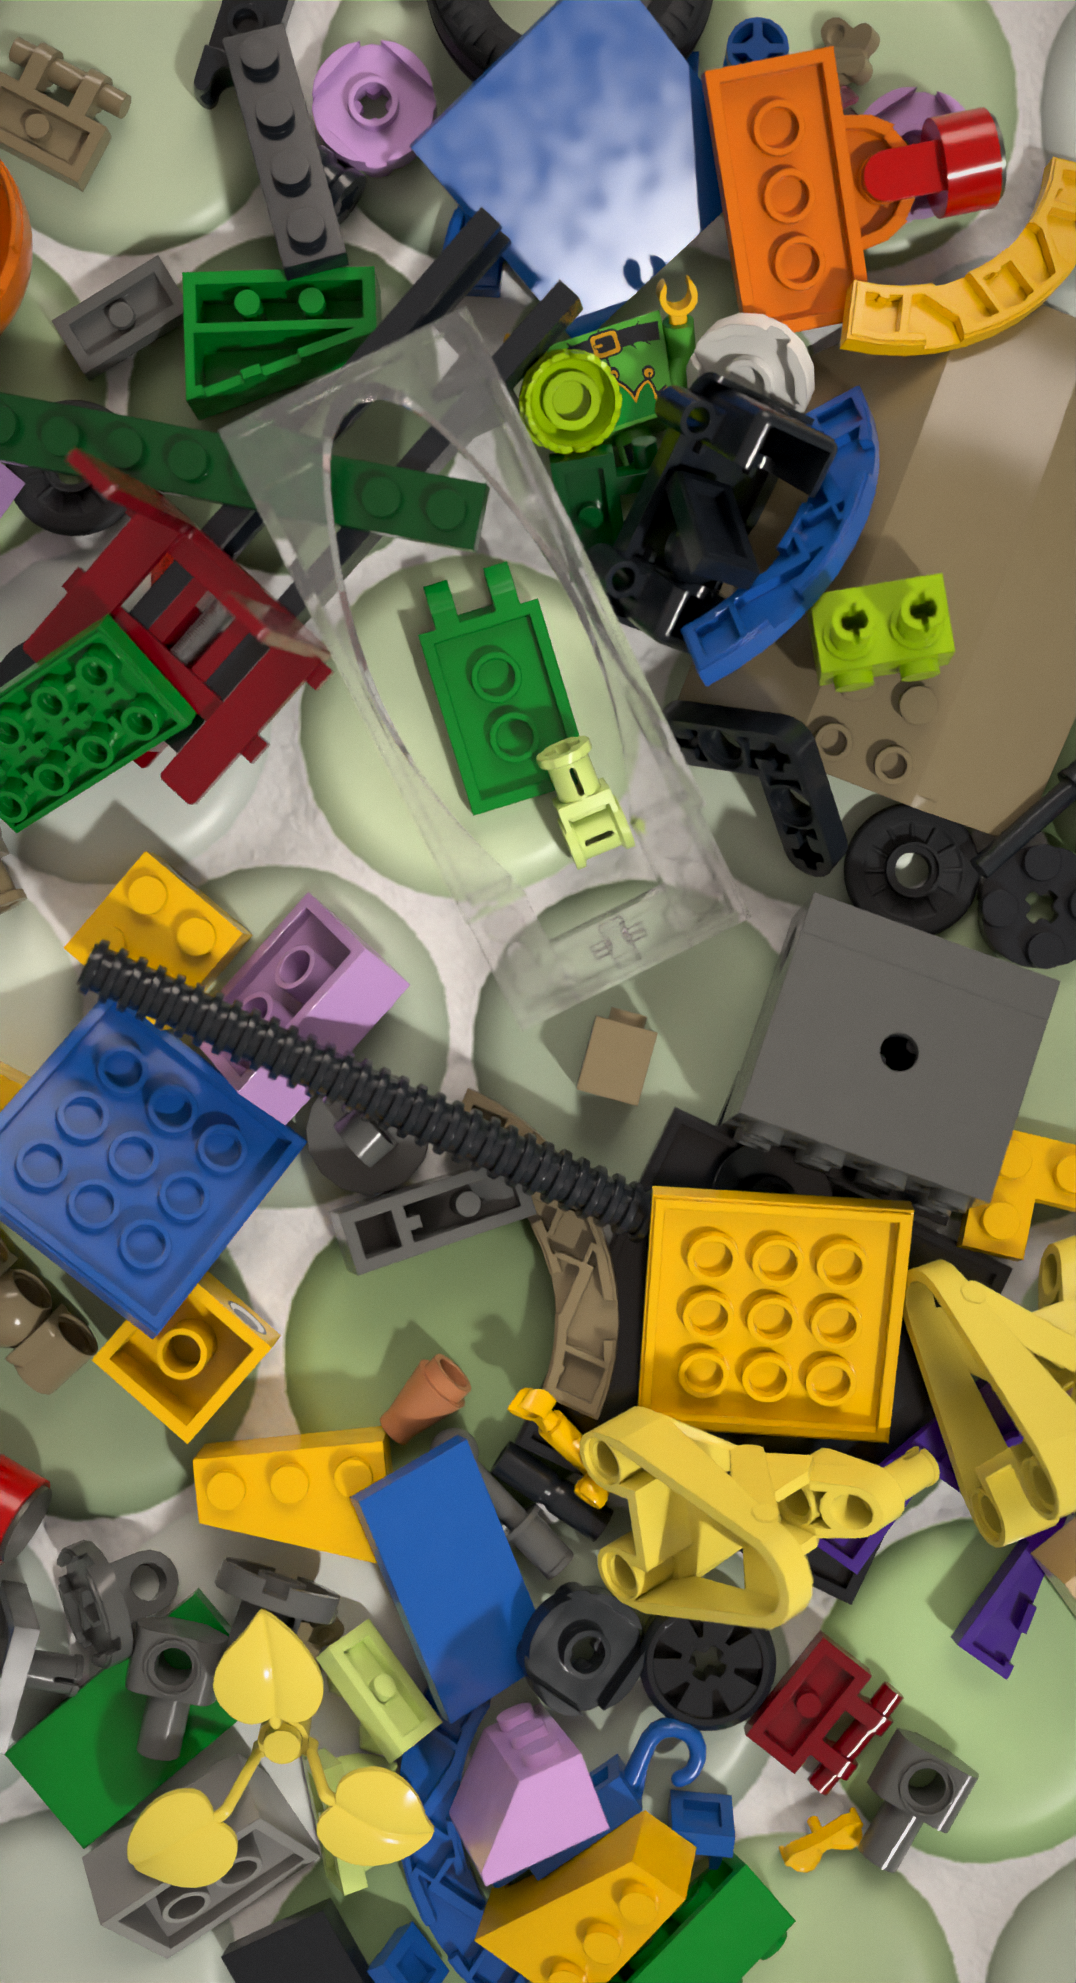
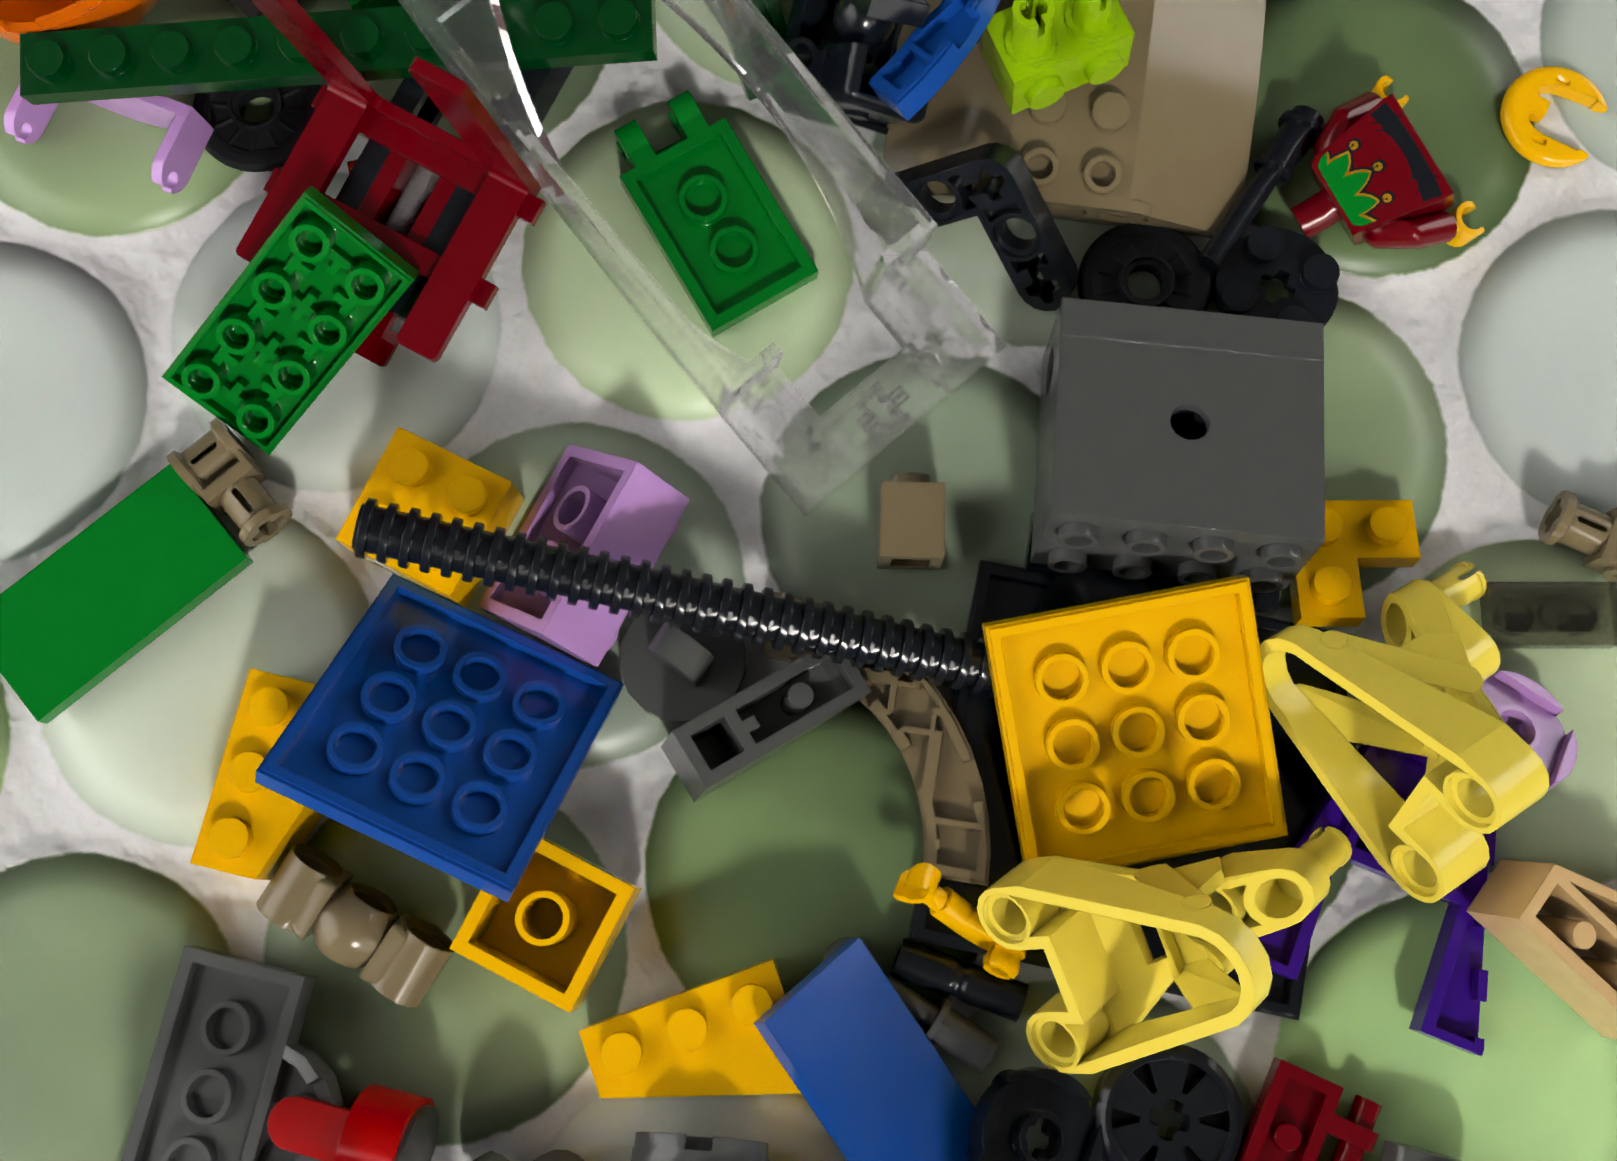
camera: 15 degrees left, 10 degrees down
(427, 1397) = (806, 914): nougat cone -> none
(586, 811) = (818, 292): yellowish green connector -> none

